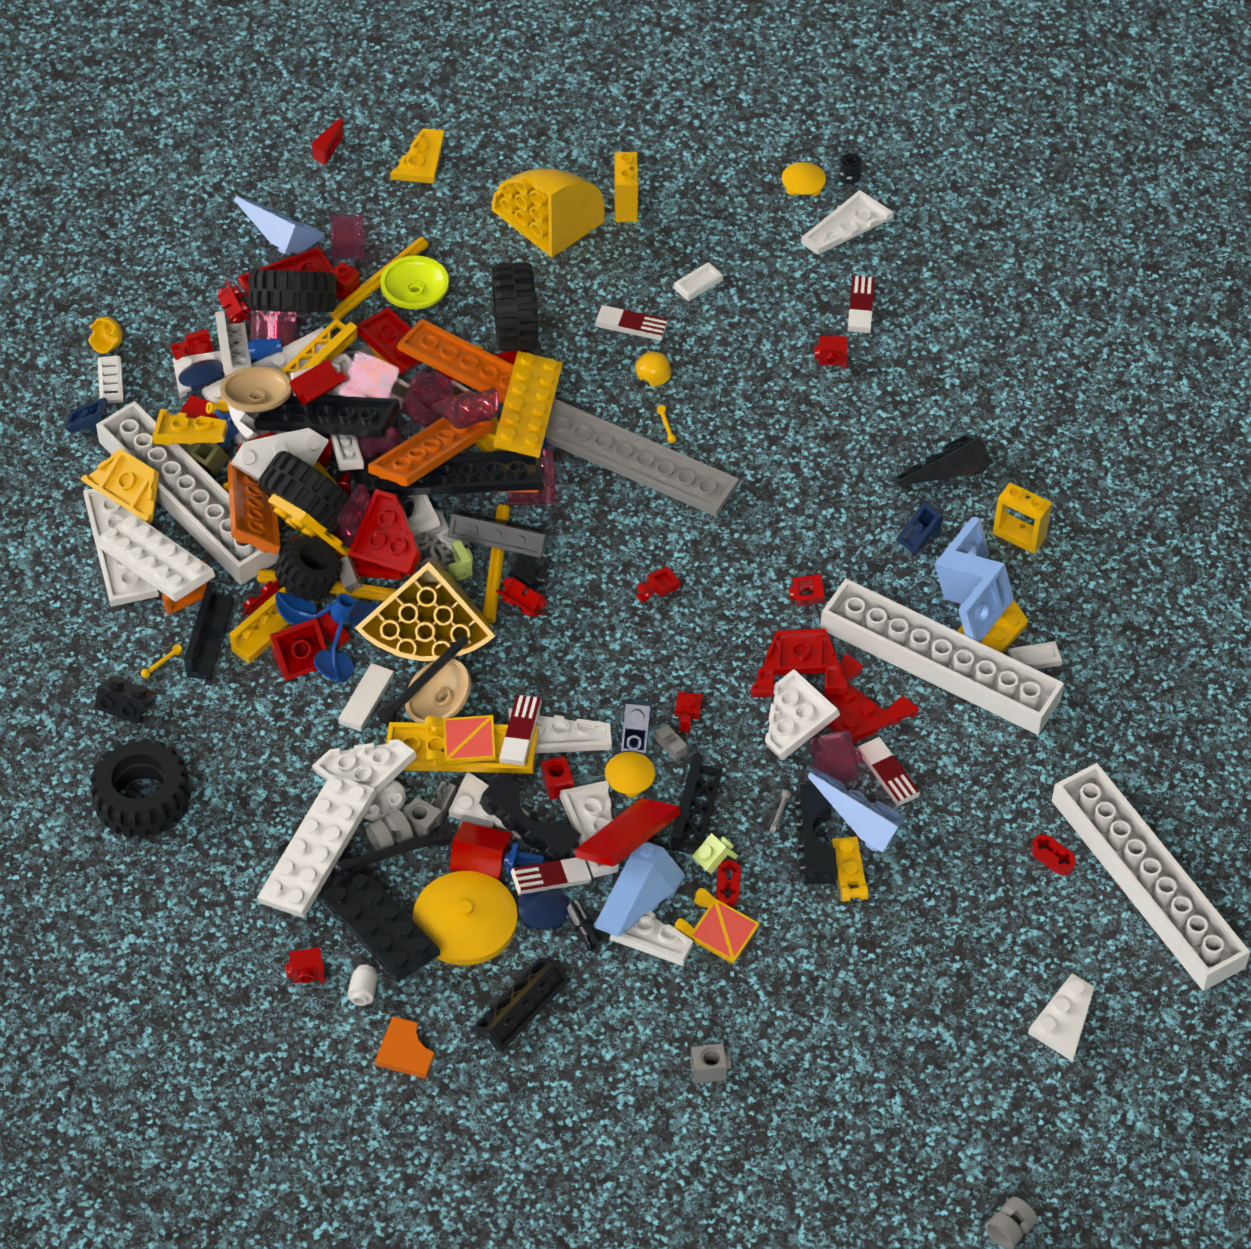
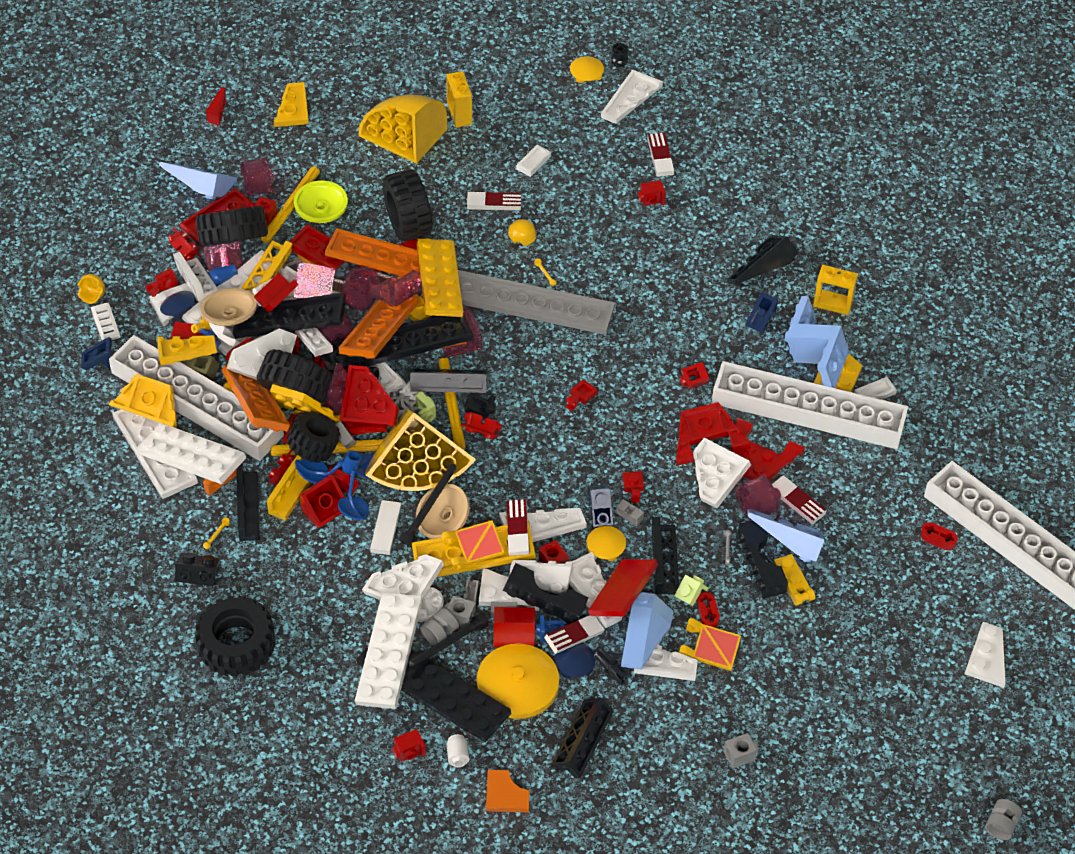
camera: 15 degrees left, 0 degrees up
(541, 798) = (550, 575): none -> white wing

